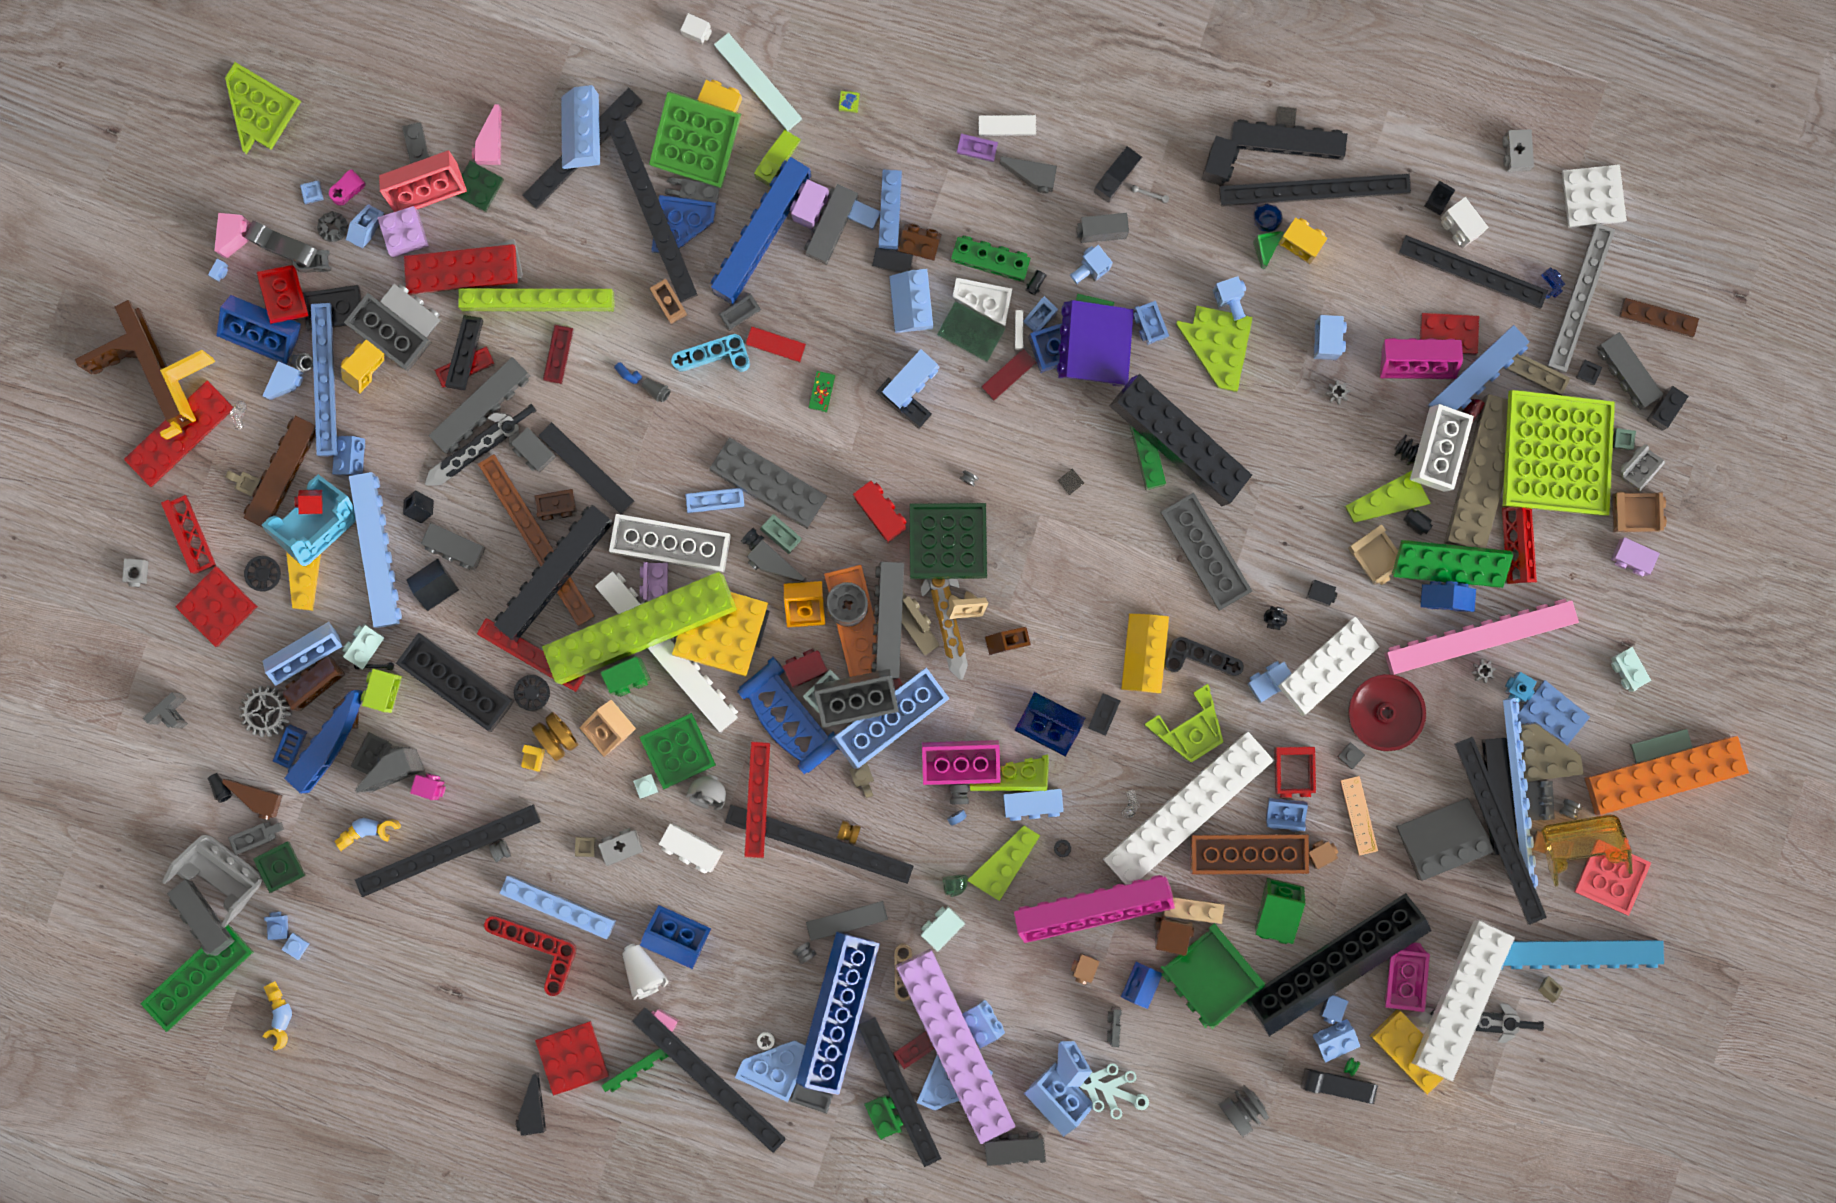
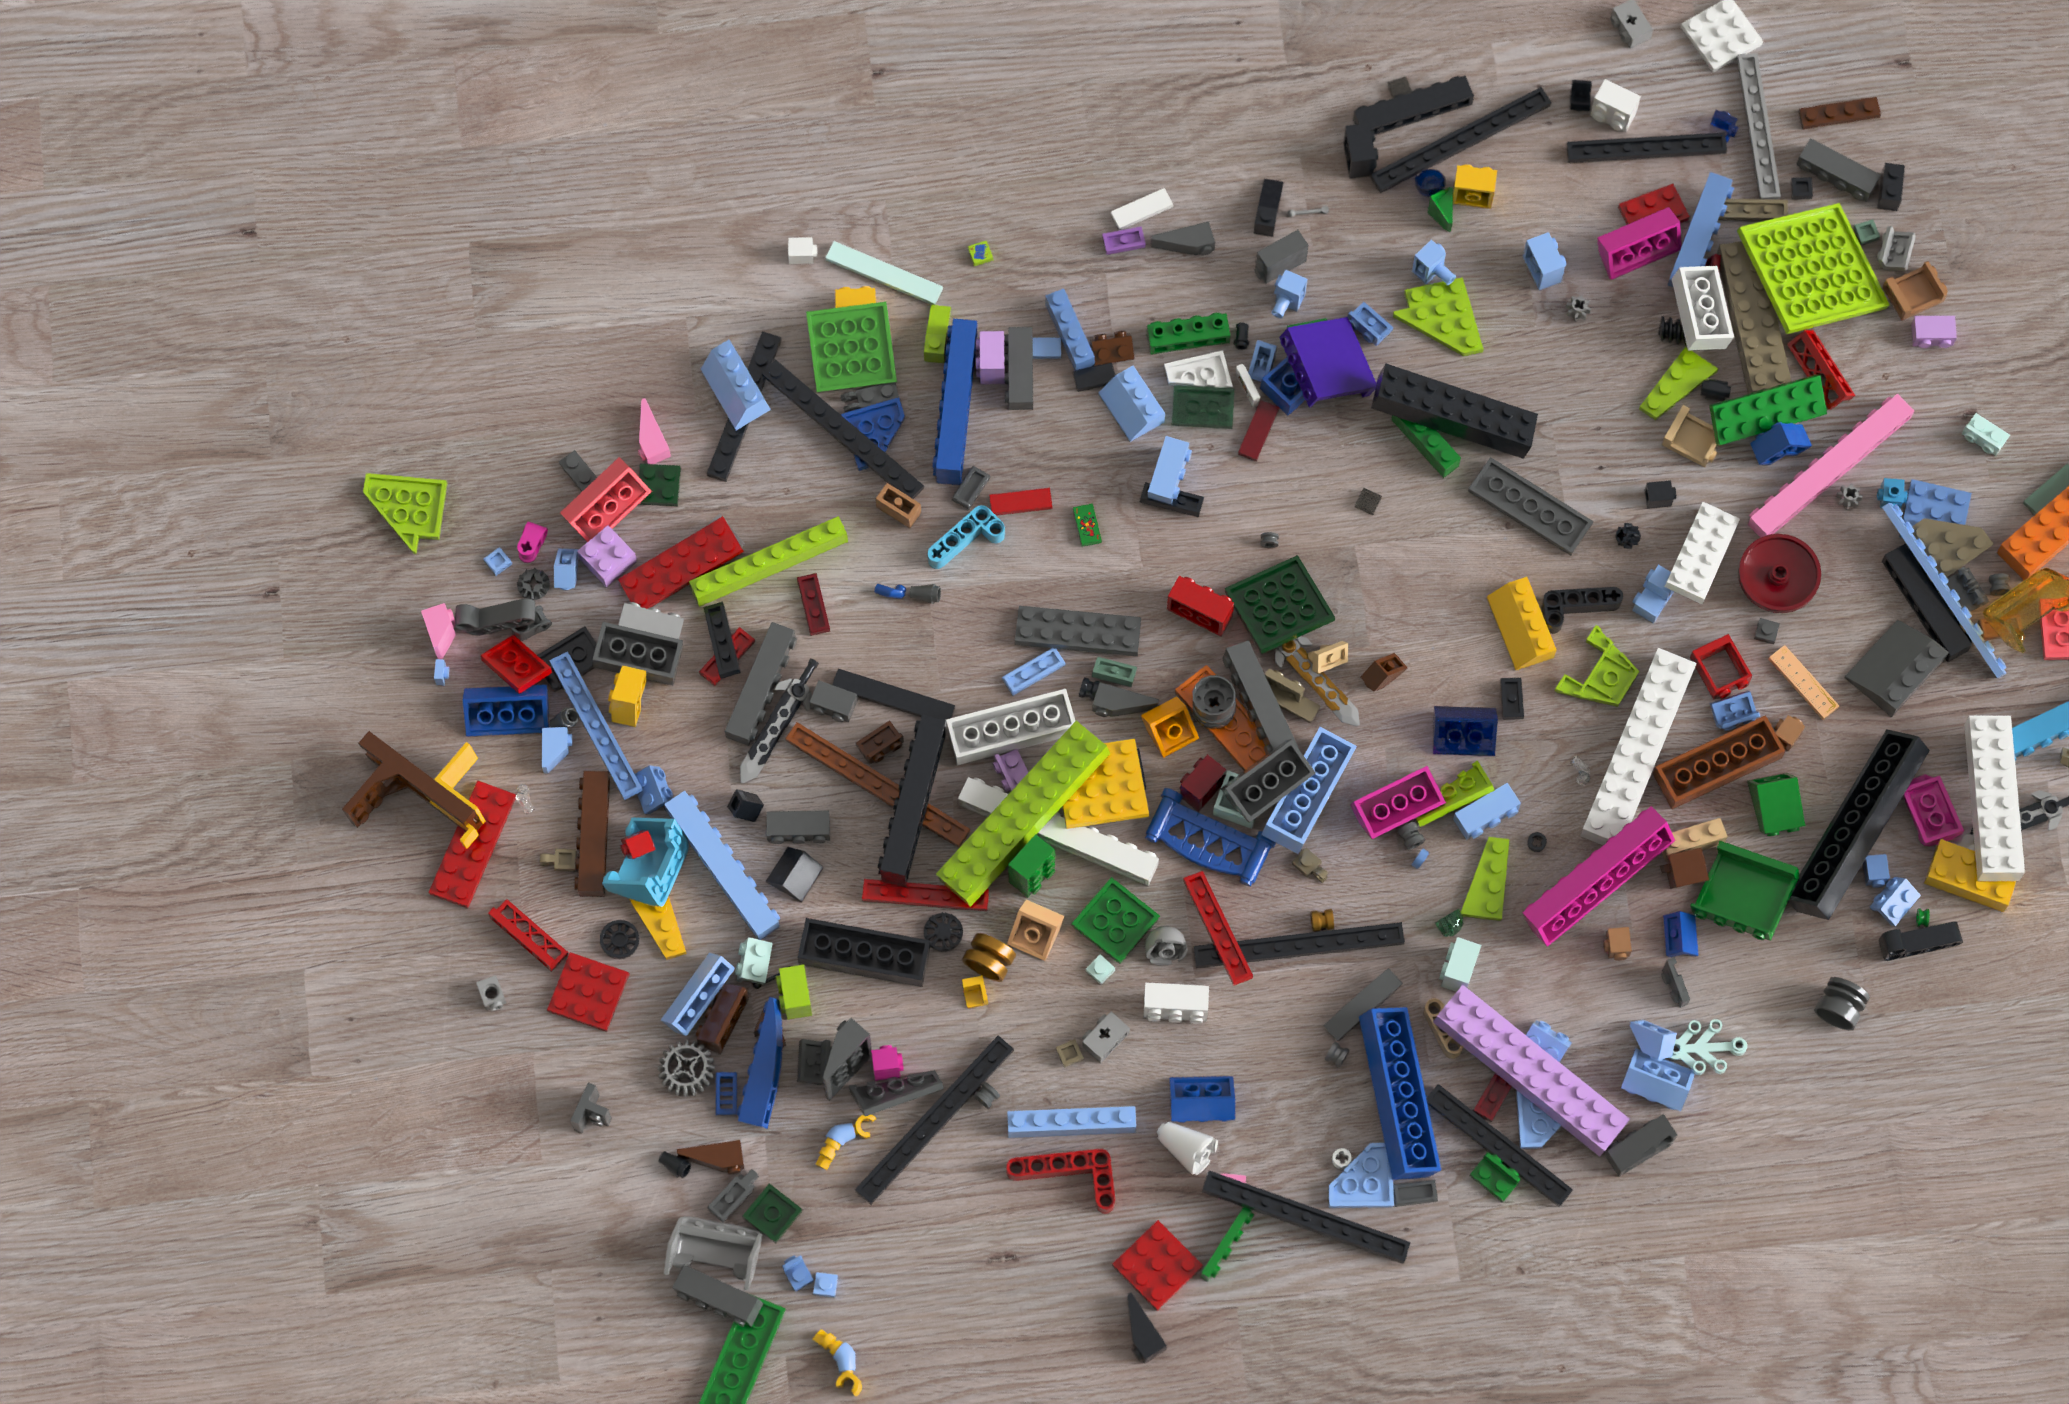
camera: 25 degrees left, 15 degrees down
(416, 811) = (894, 1092): none -> dark grey wing
(1500, 830) = (1944, 629): black plate -> none

